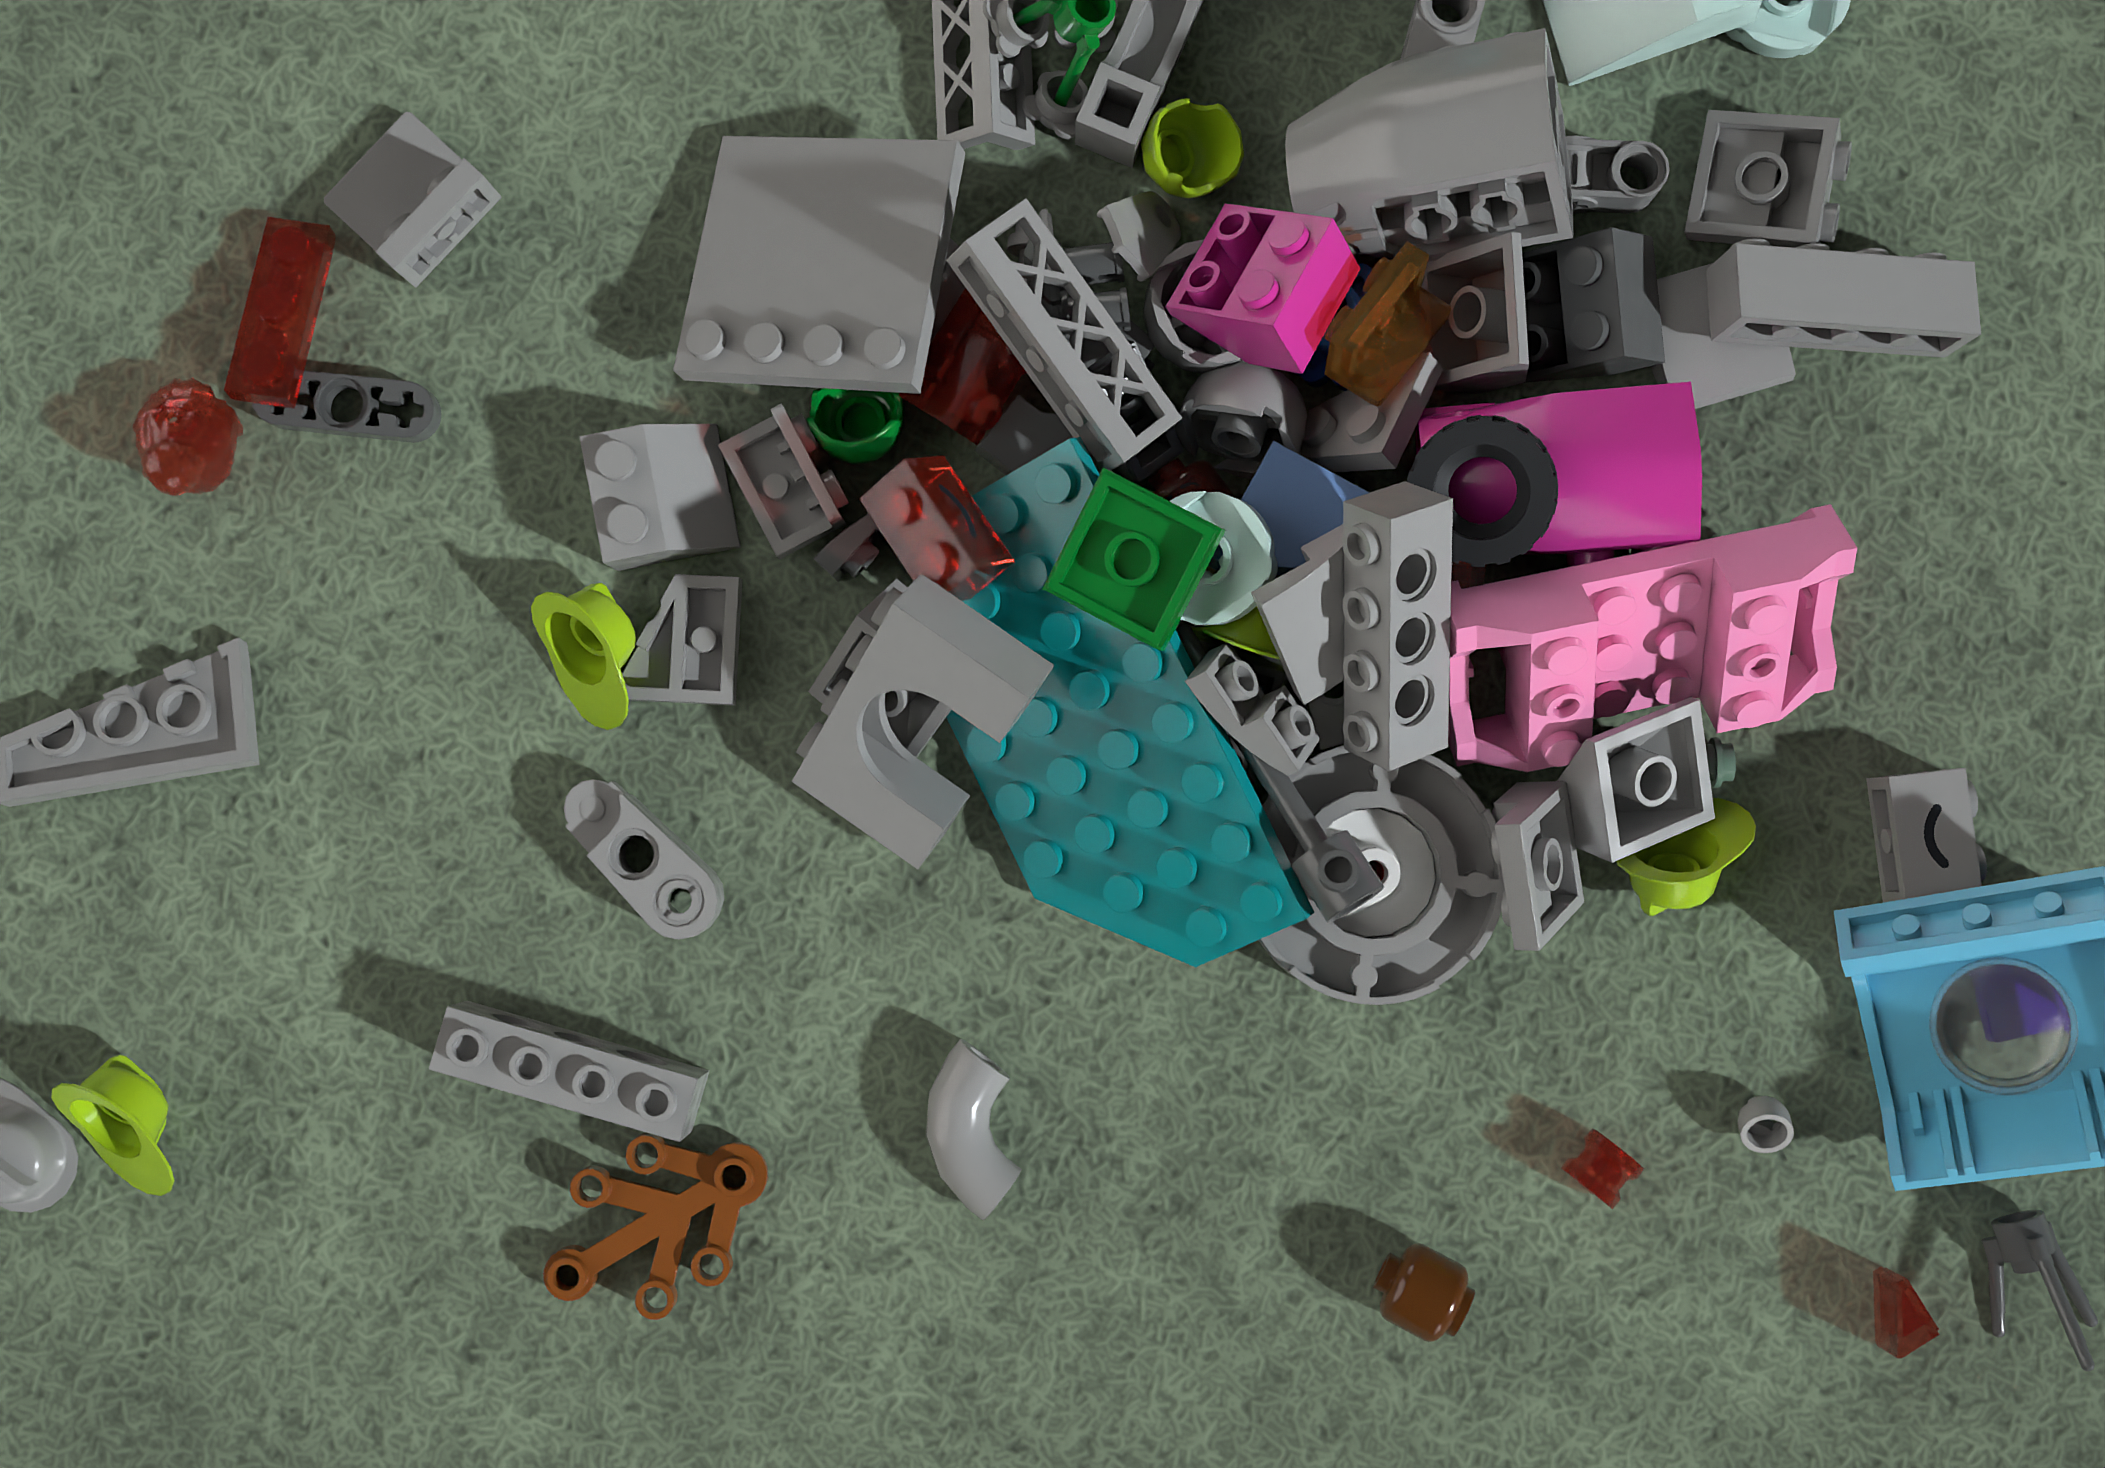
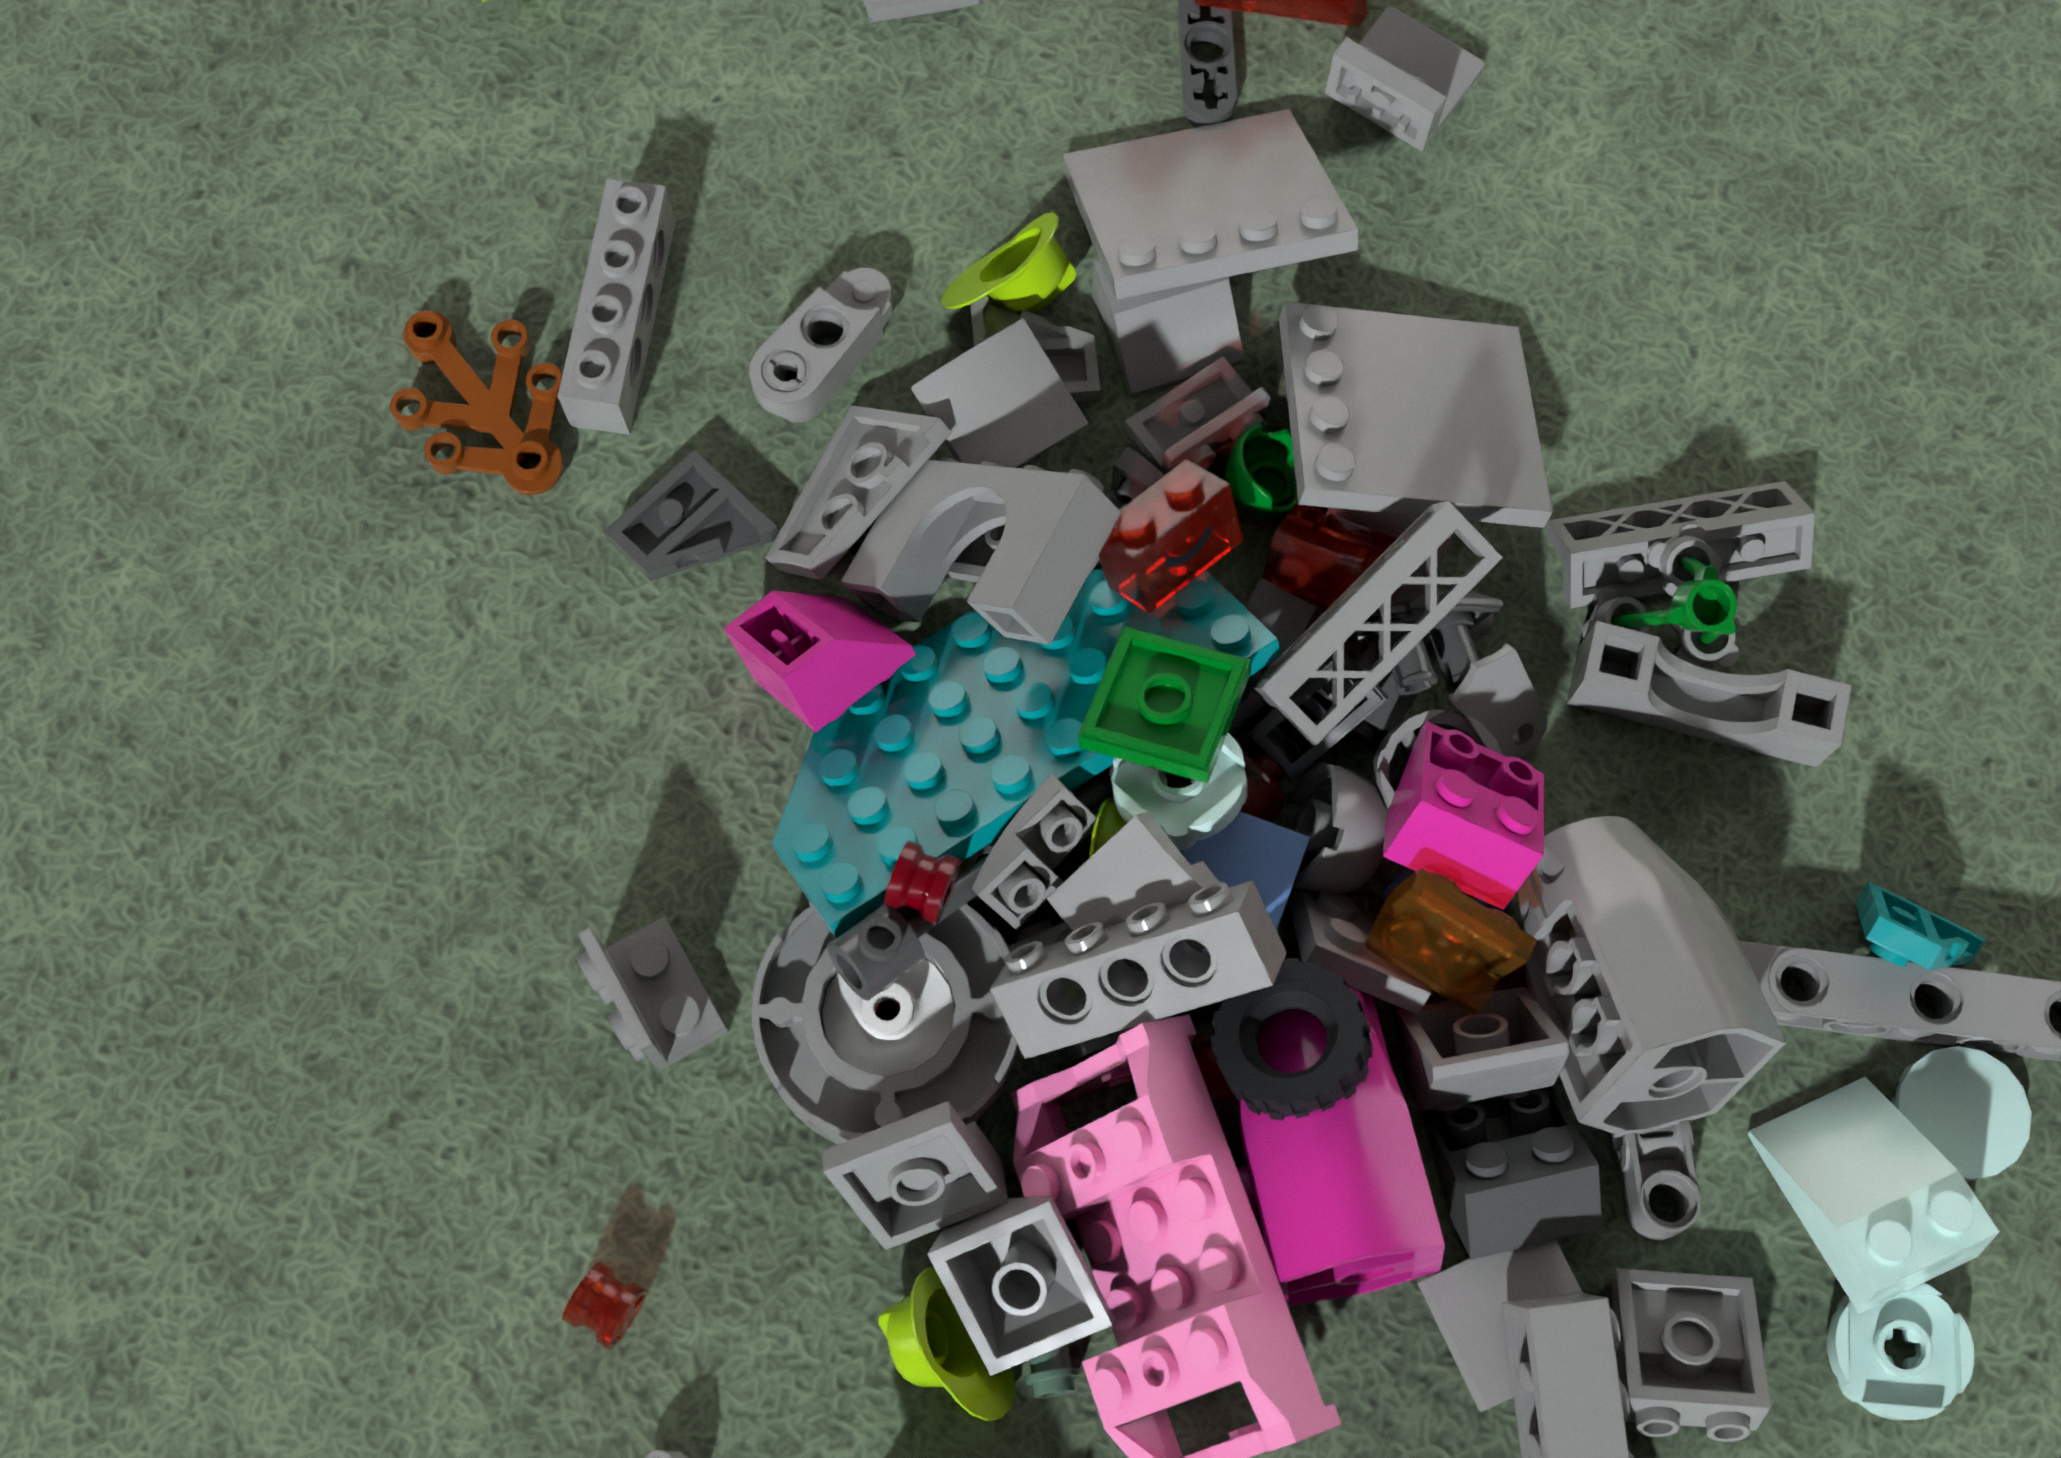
camera: 80 degrees right, 15 degrees down
(550, 432) = (1207, 204): none -> light grey plate
(746, 682) = (1001, 400): none -> light grey slope
(810, 844) = (852, 484): none -> light grey wing
(822, 1018) = (688, 521): none -> dark grey wing
(961, 1129) = (589, 659): light grey cylinder -> none
(992, 898) = (815, 652): none -> dark pink slope
(1191, 148) = (1596, 747): lime hair -> none
(1284, 822) = (922, 882): none -> dark red wheel
(1314, 1100) = (656, 992): none -> light grey bracket
(1424, 1292) = (461, 1129): reddish brown head -> none

